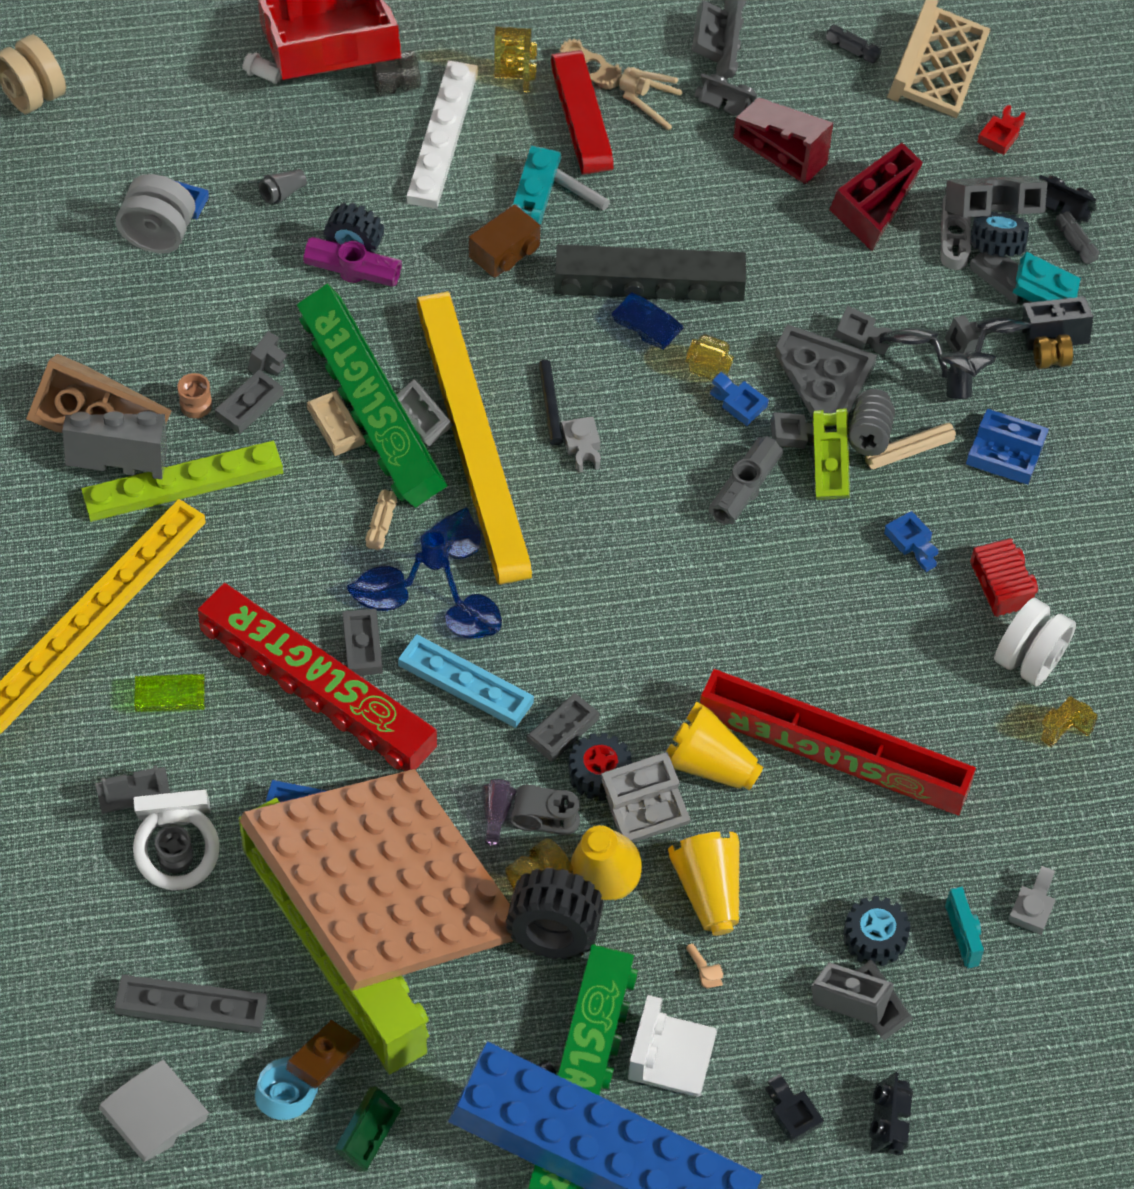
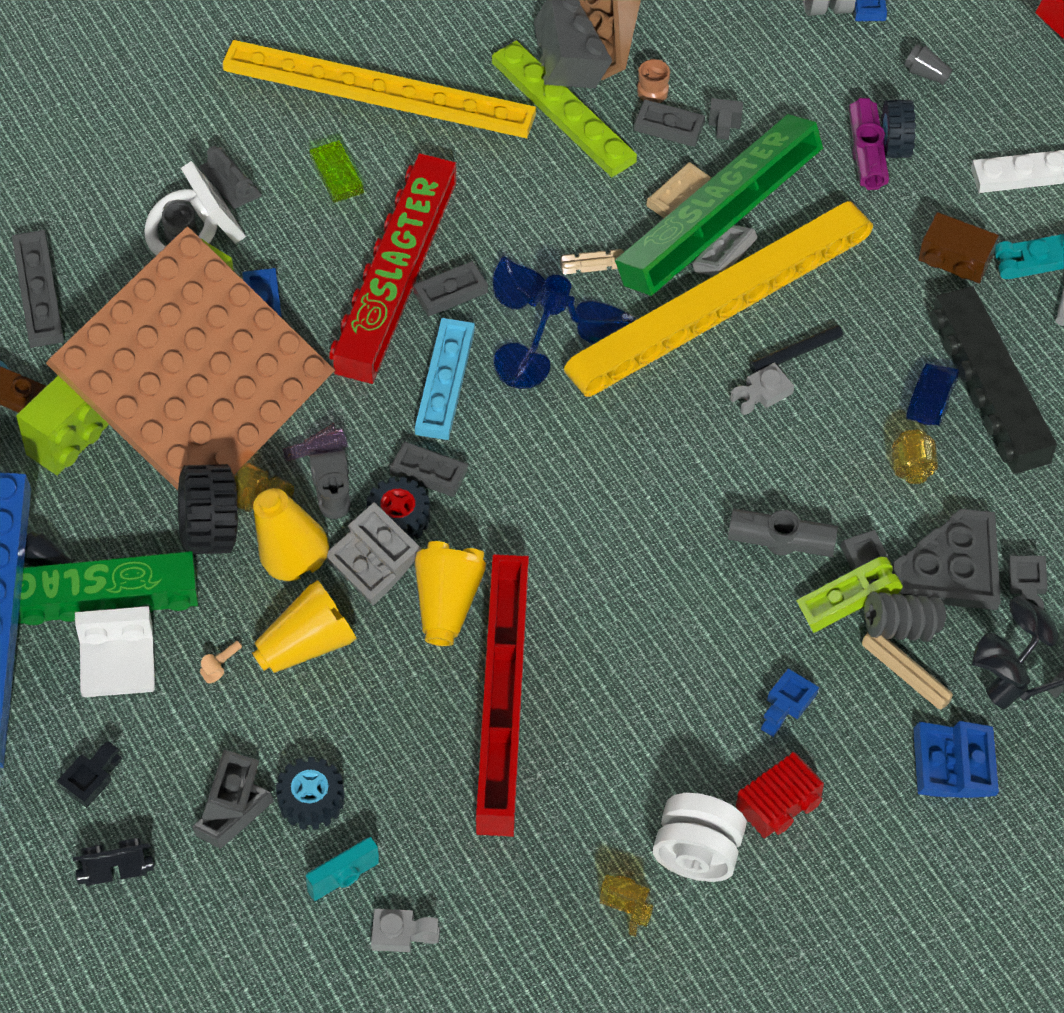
camera: 70 degrees right, 0 degrees up
(741, 400) = (880, 502): blue plate -> none

